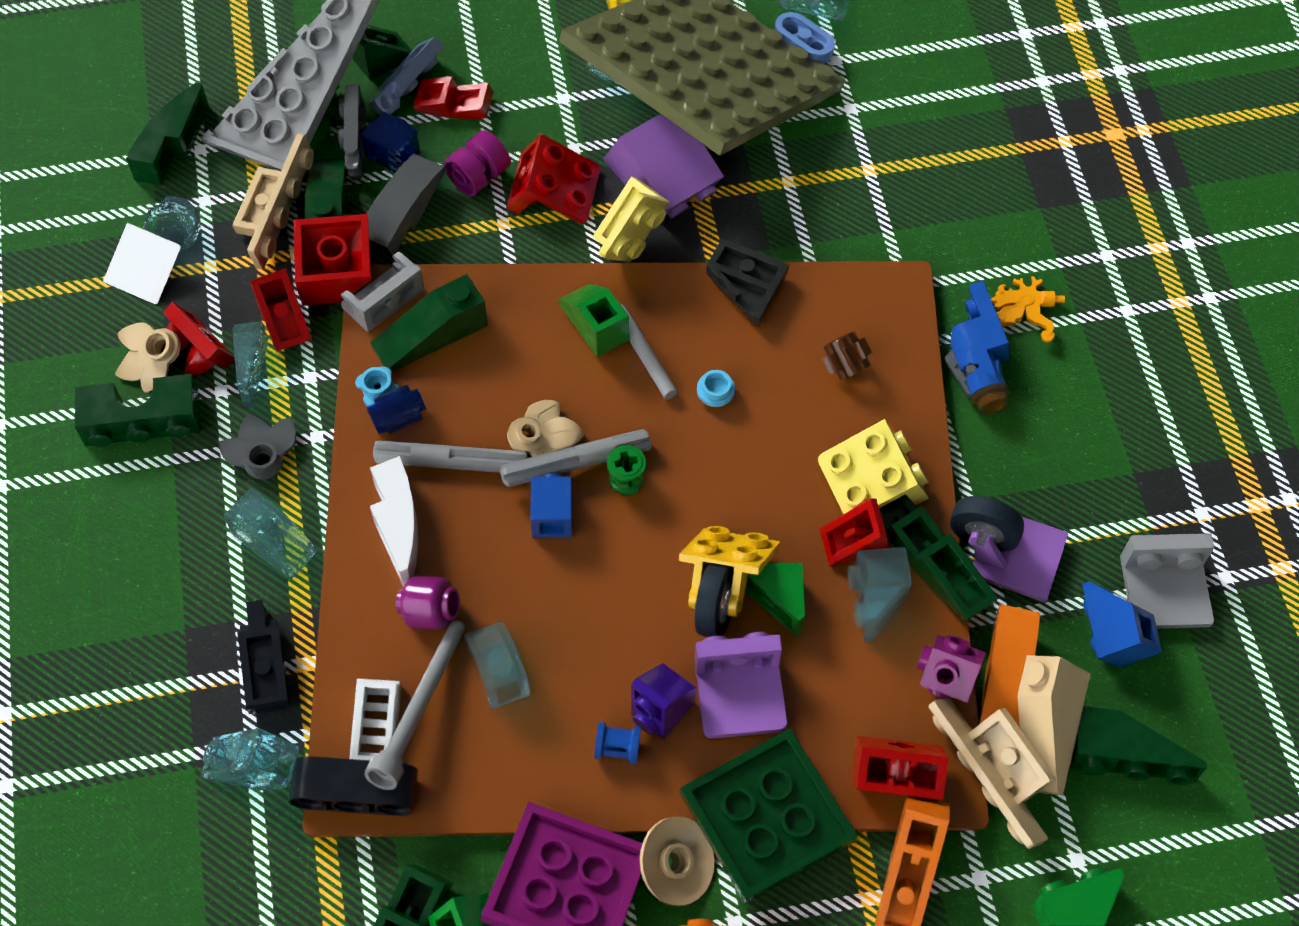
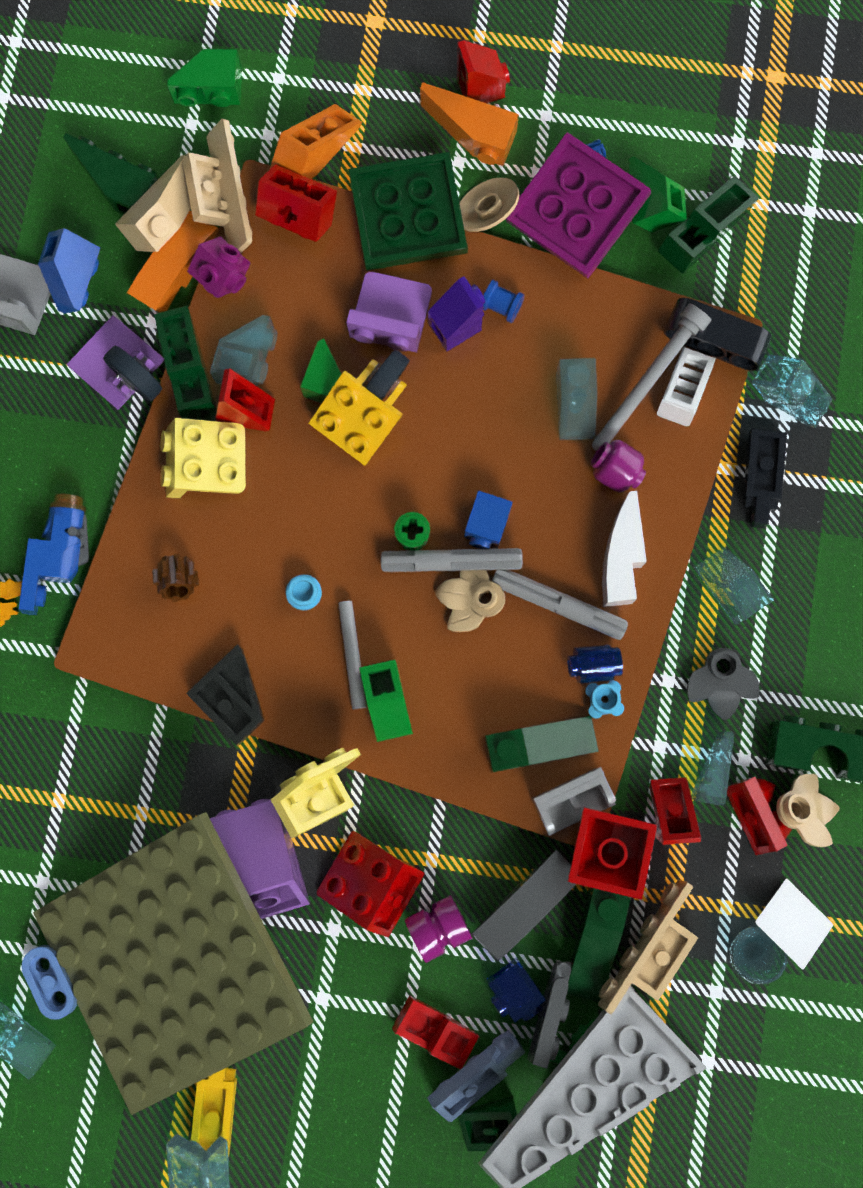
camera: 155 degrees left, 20 degrees up
(168, 135) = (738, 1082): dark green slope -> none

